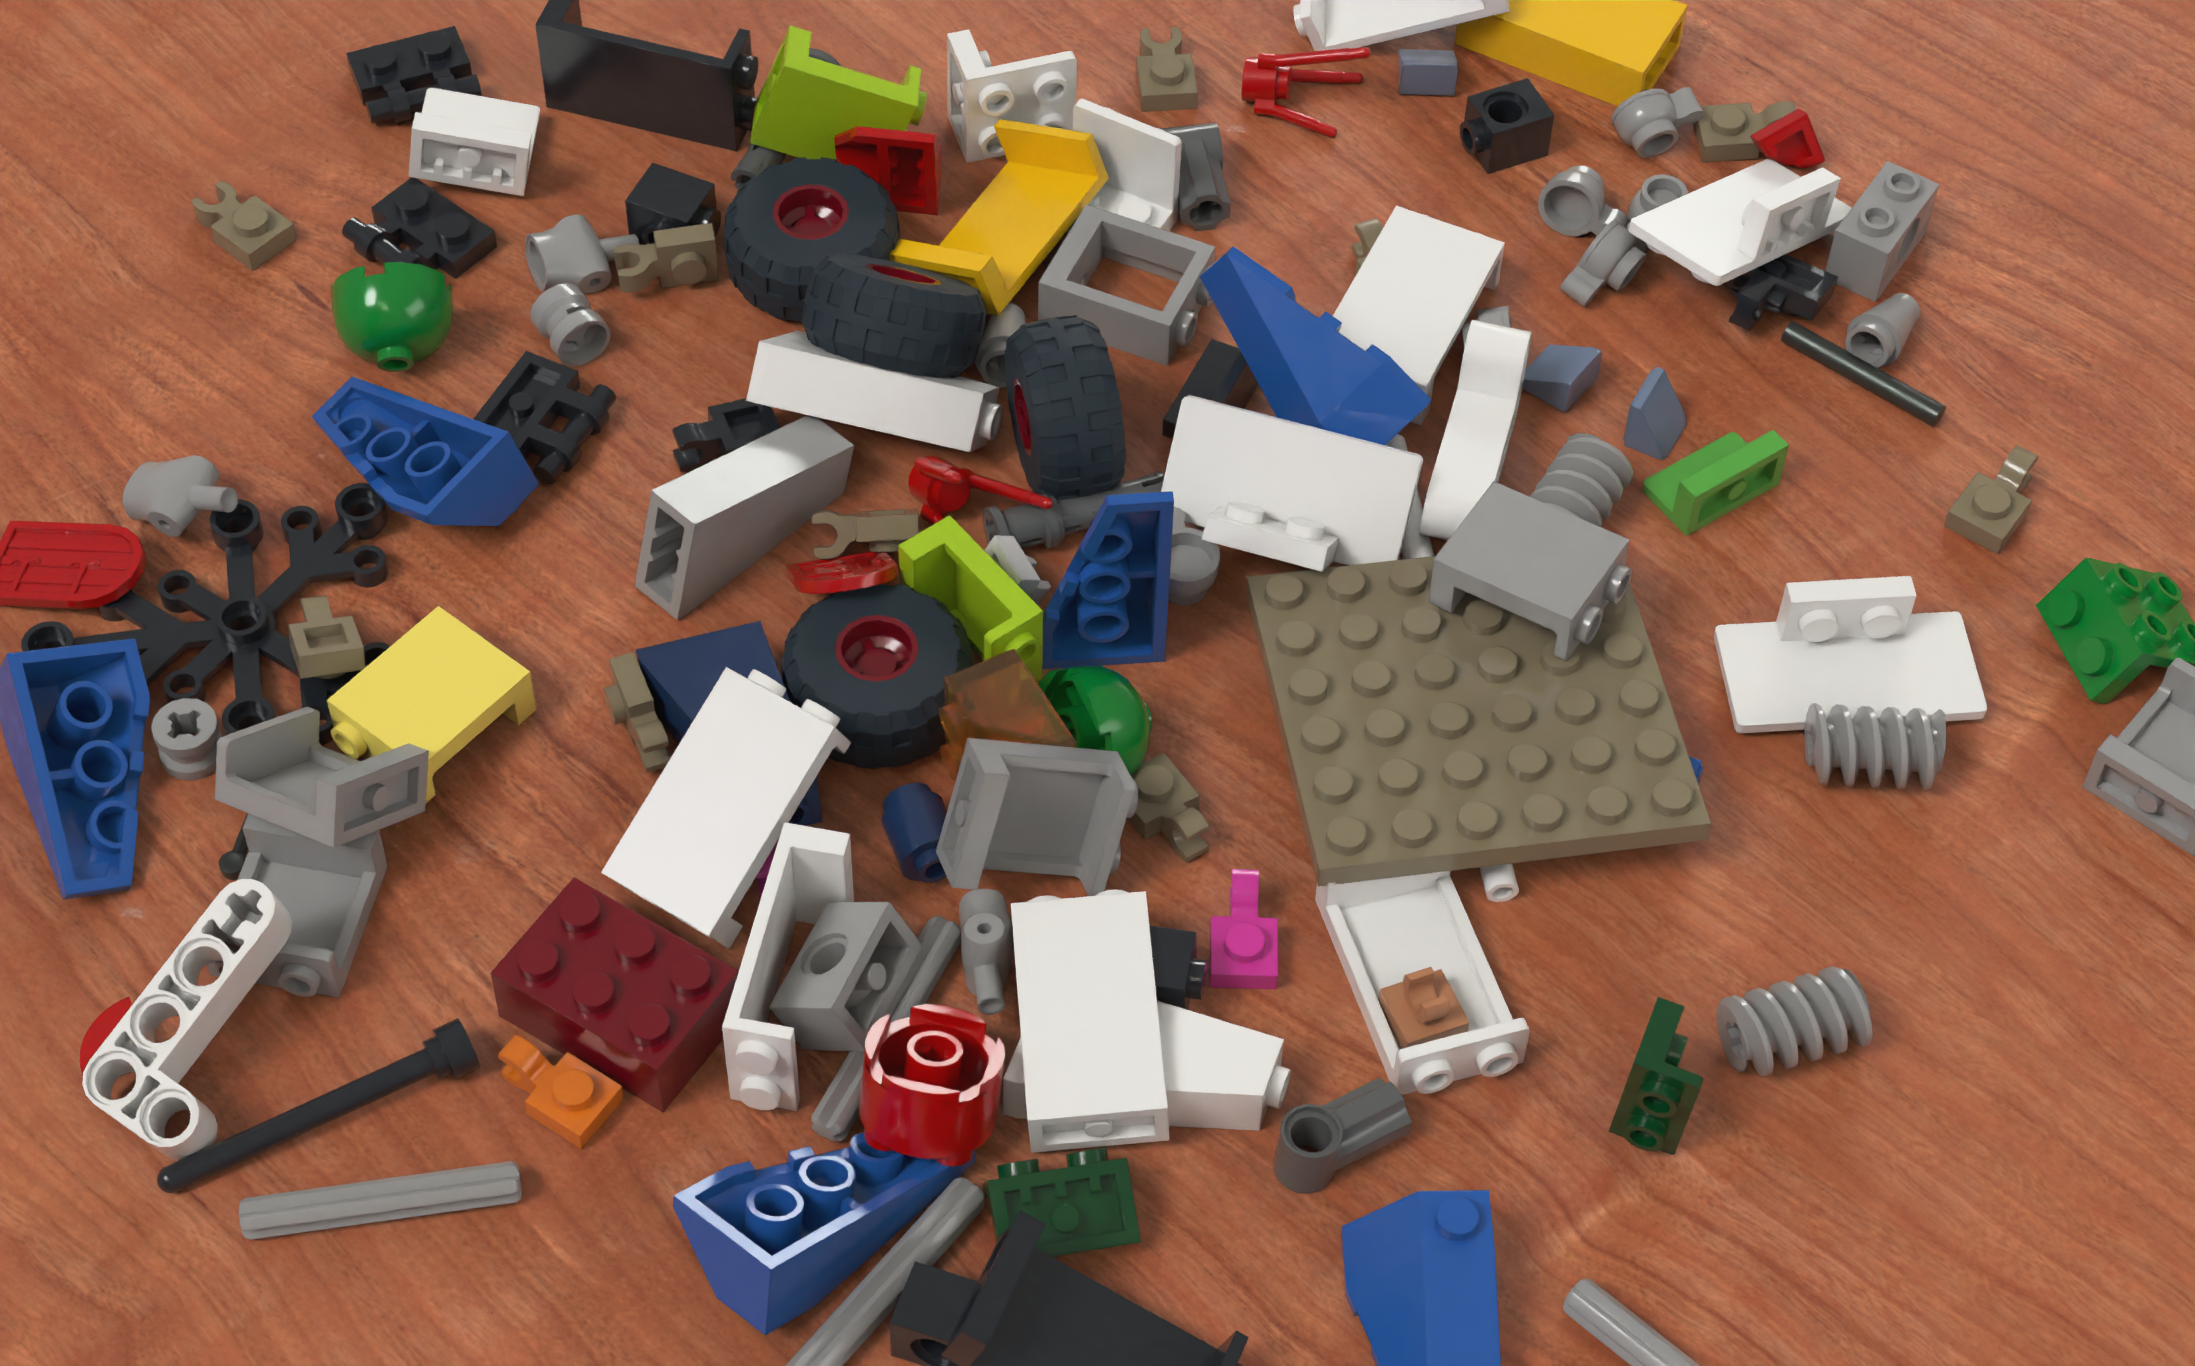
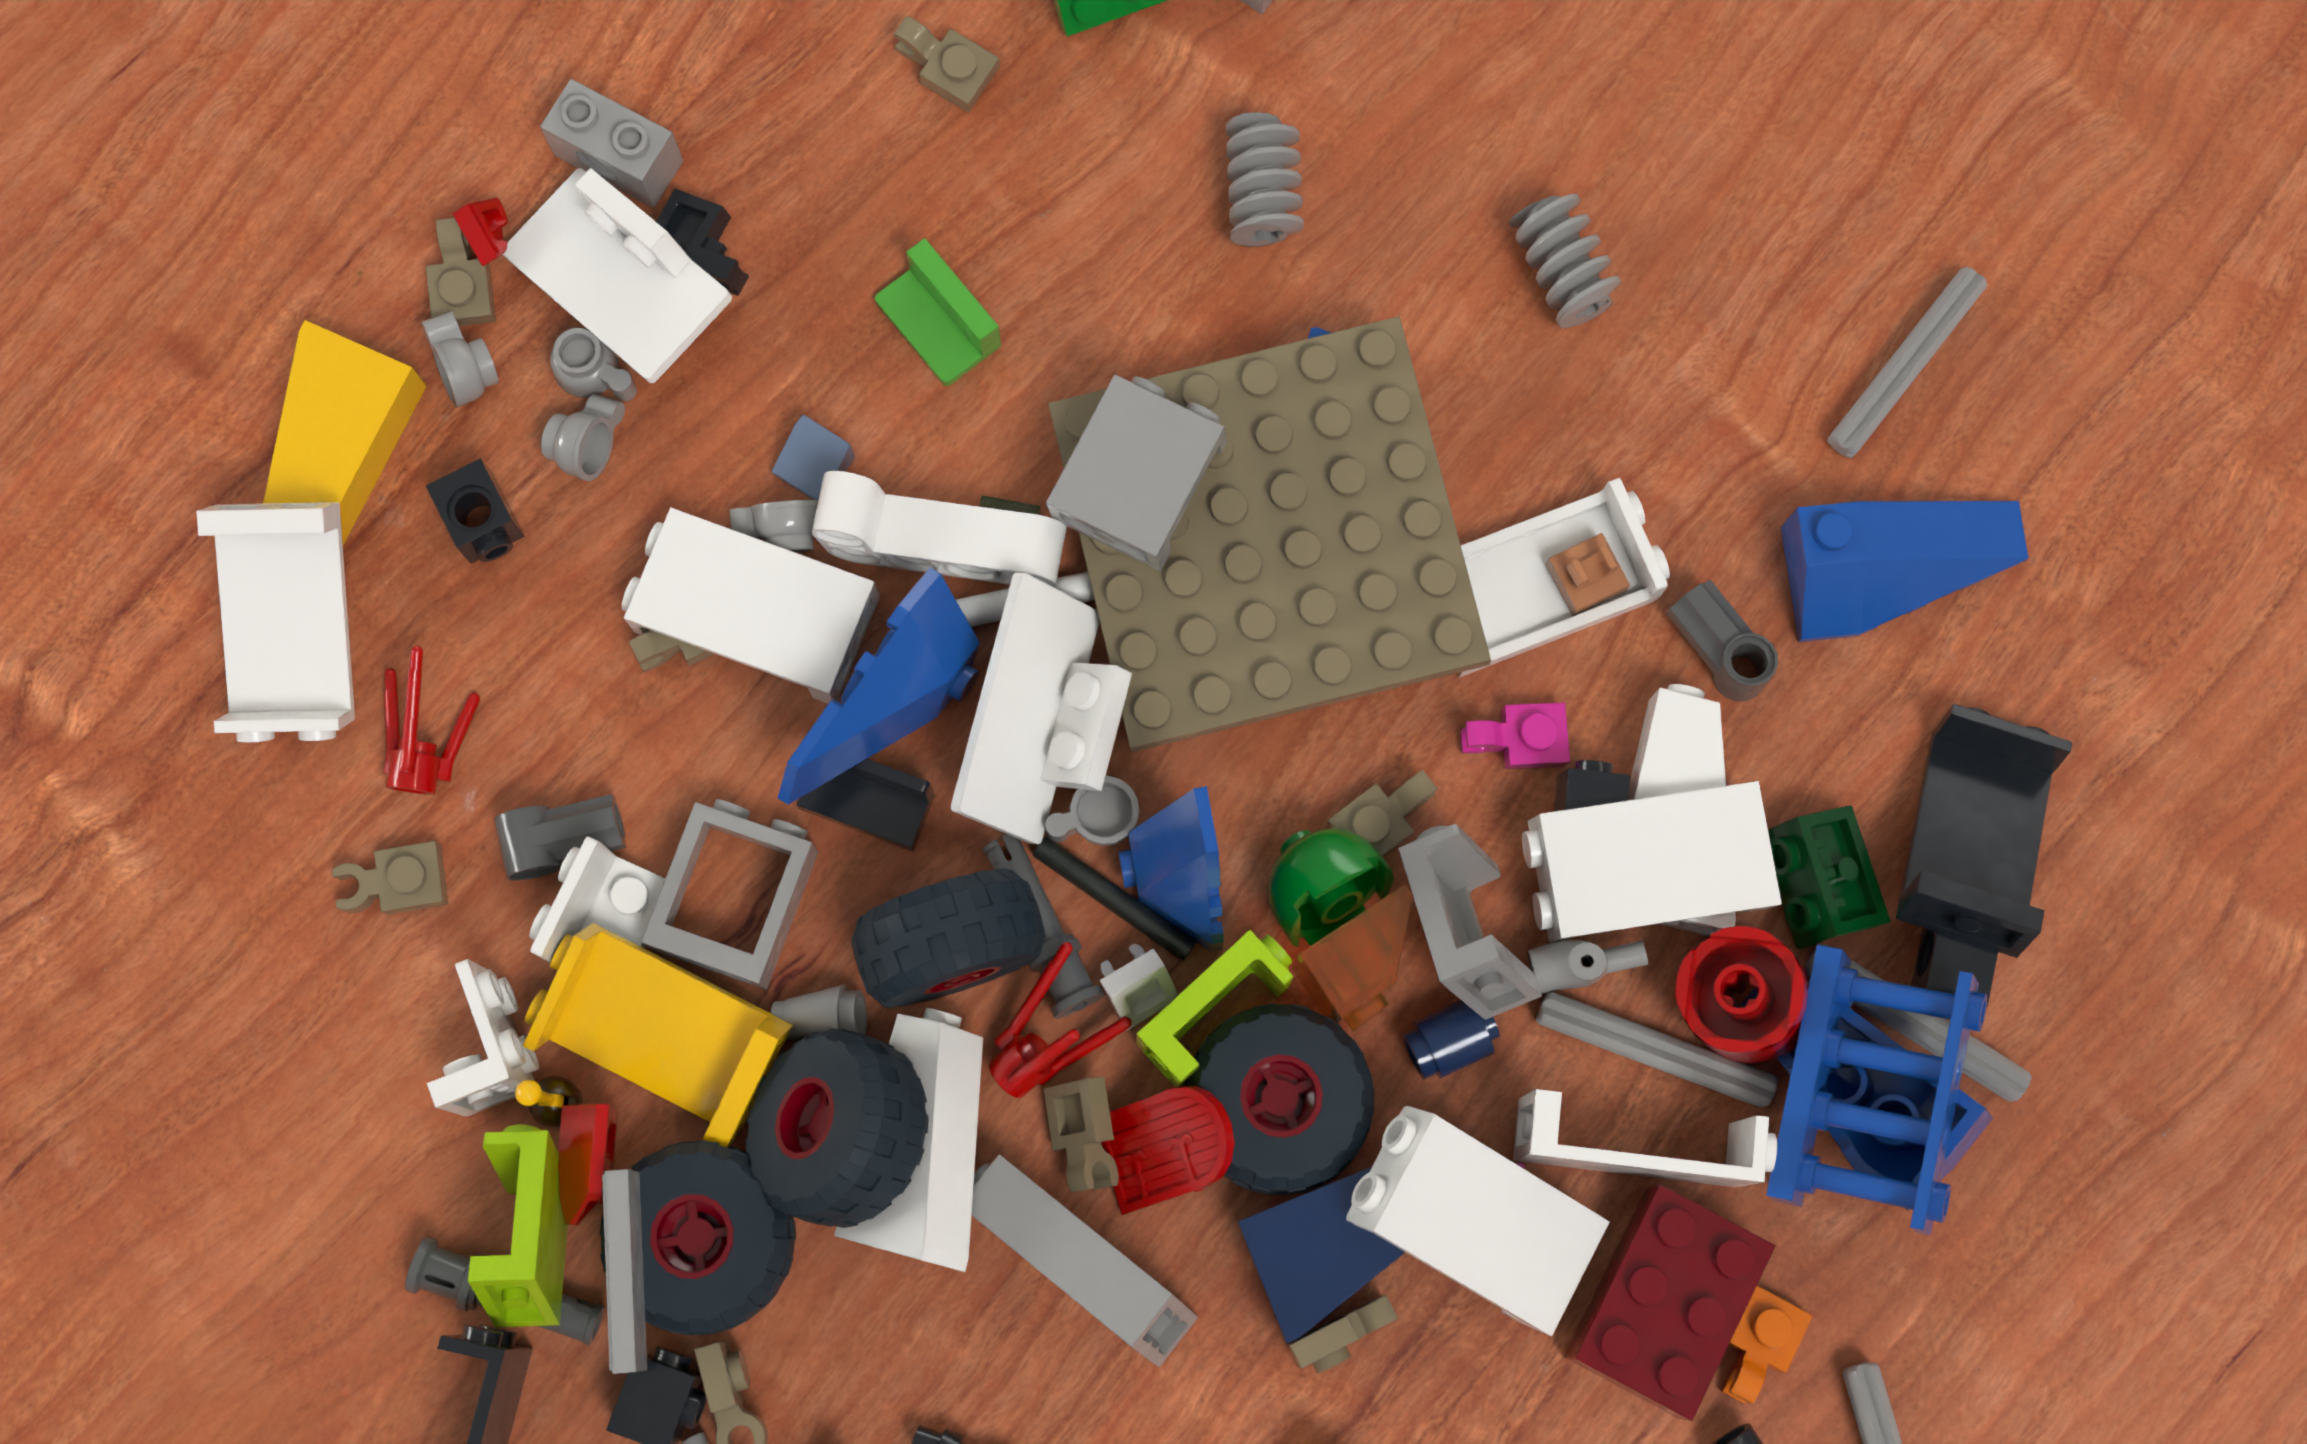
camera: 95 degrees left, 25 degrees up
(727, 429) = (967, 1294): black plate -> none
(784, 150) = (624, 1271): none -> light grey tile
(822, 1125) = (1813, 1109): none -> blue fence
(846, 975) = (1610, 1062): light grey brick -> none
(952, 154) = (547, 1098): none -> hinge
(1427, 72) = (379, 599): sand blue slope -> none
(1585, 478) = (988, 443): light grey piece -> none
(1608, 260) = (663, 415): light grey piece -> none
(1654, 417) = (869, 371): sand blue slope -> none
(1658, 1091) = (1657, 377): dark green bracket -> none
(1847, 648) = (1165, 203): white bracket -> none
(1863, 373) = (788, 175): pearl dark grey bar -> none
(1883, 330) = (739, 150): light grey cone -> none

